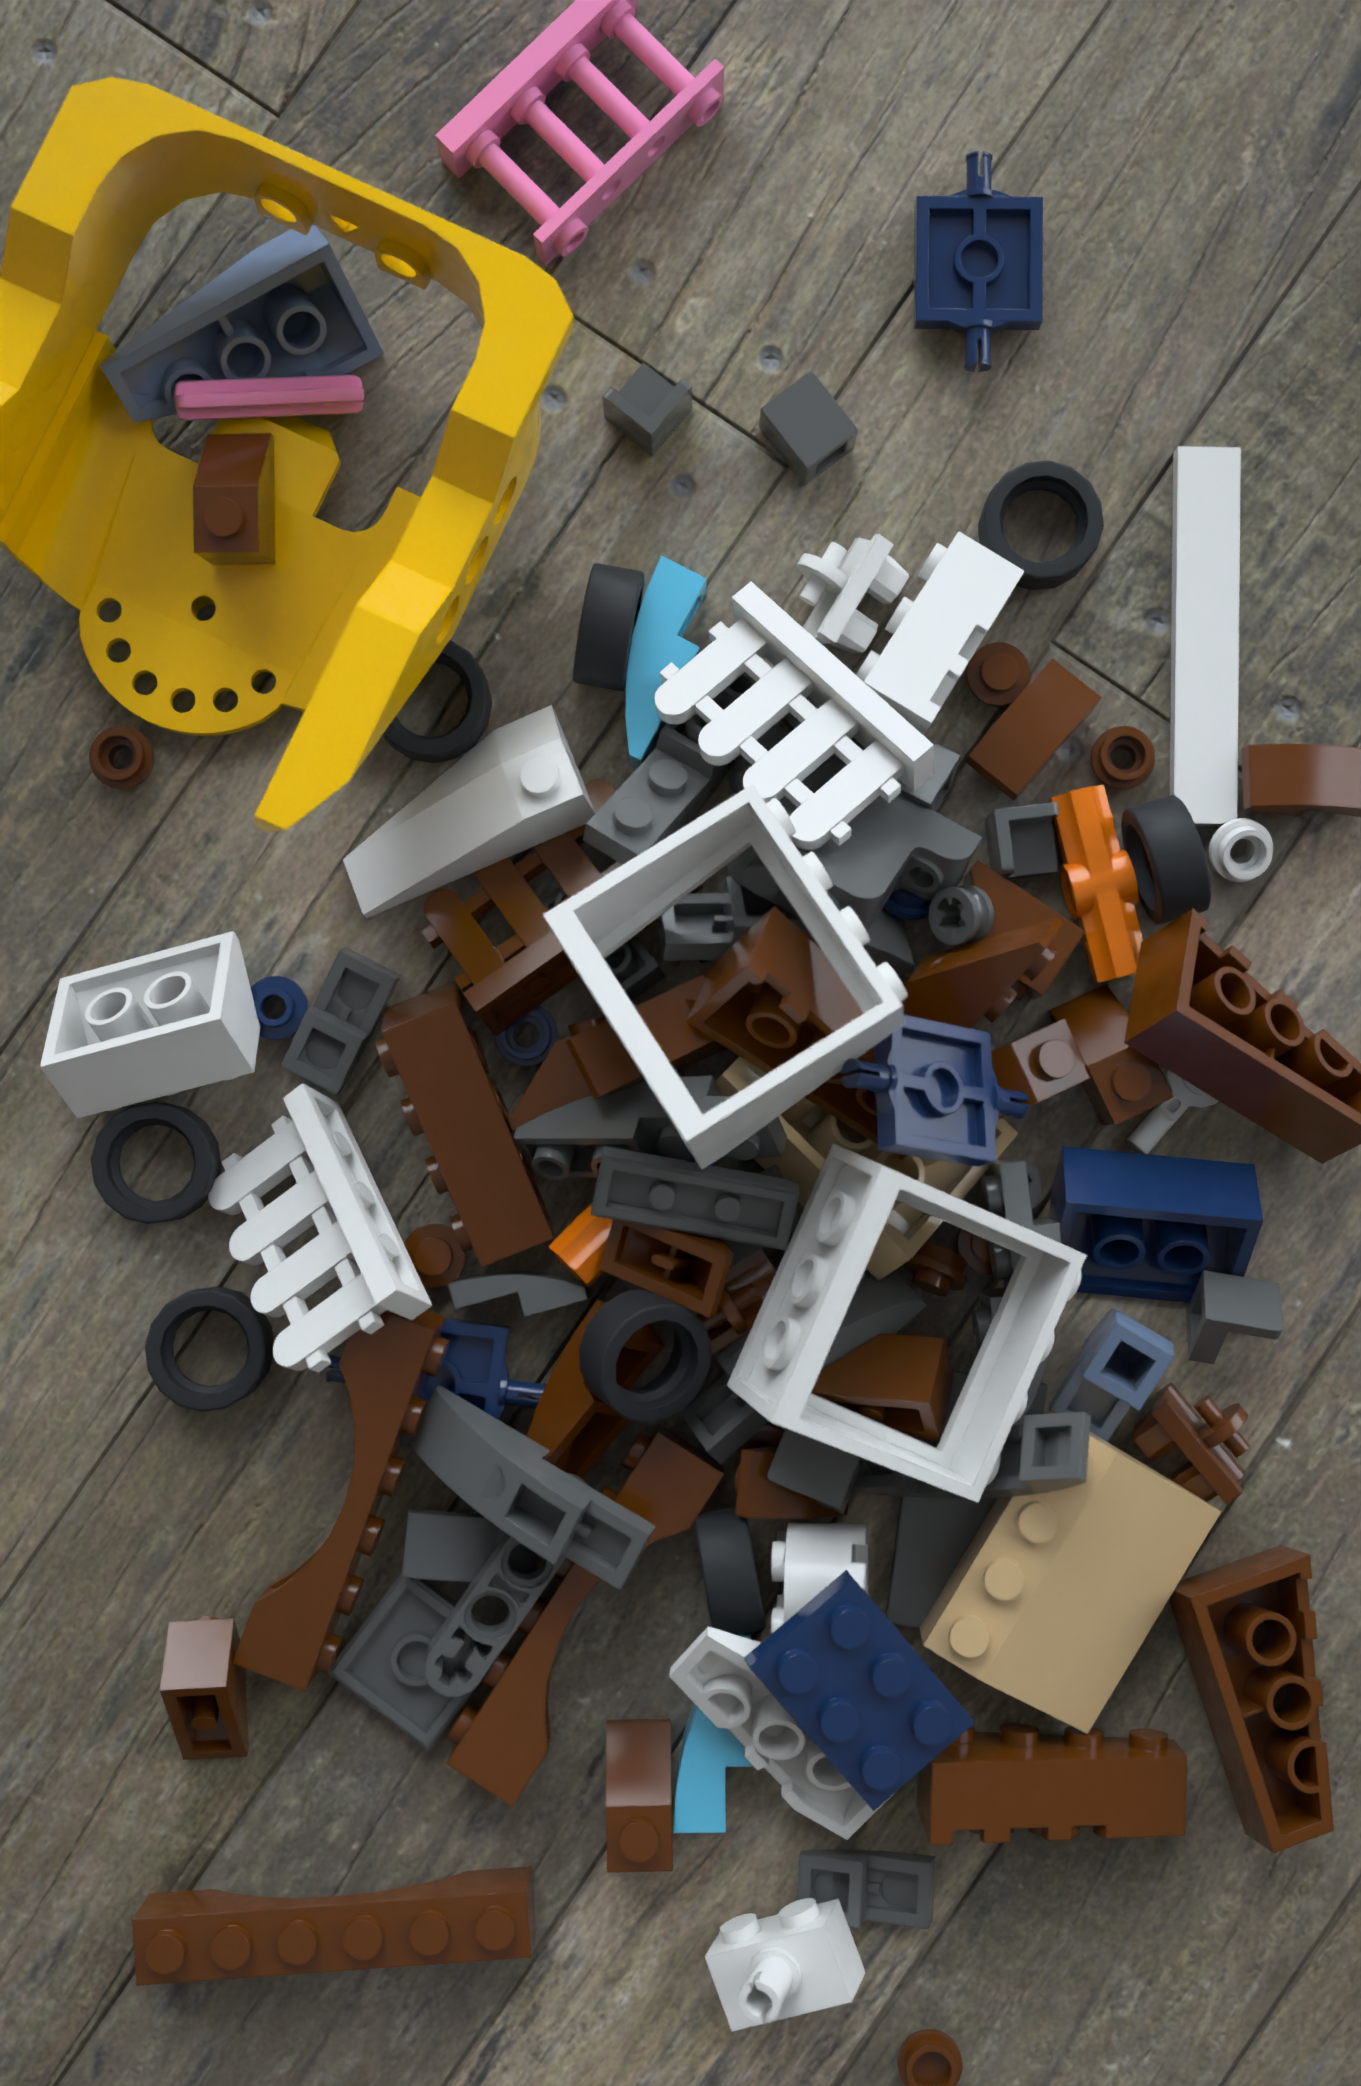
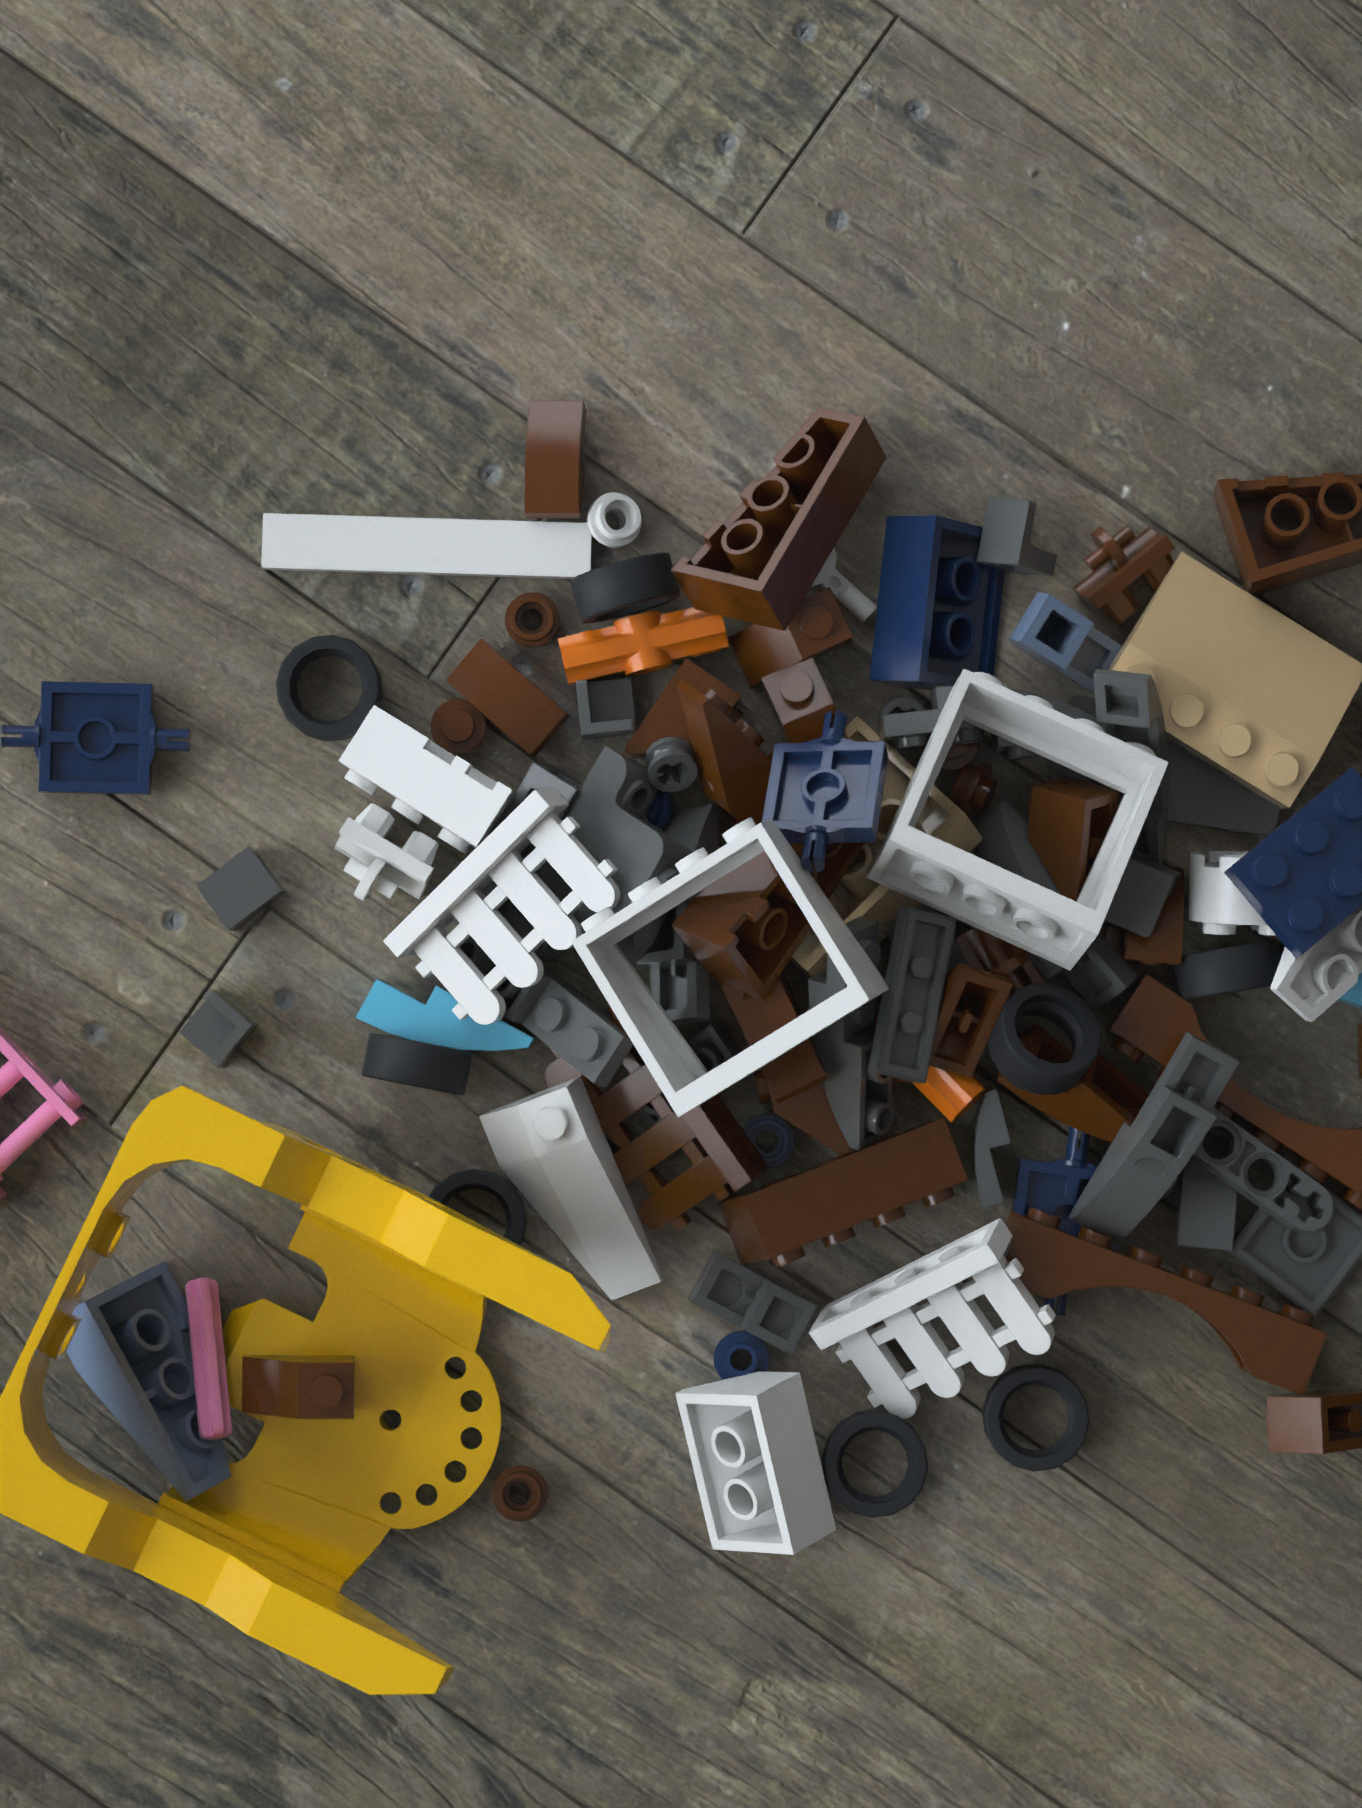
camera: 90 degrees left, 0 degrees up
(435, 1254) = (955, 1219): reddish brown plate -> none

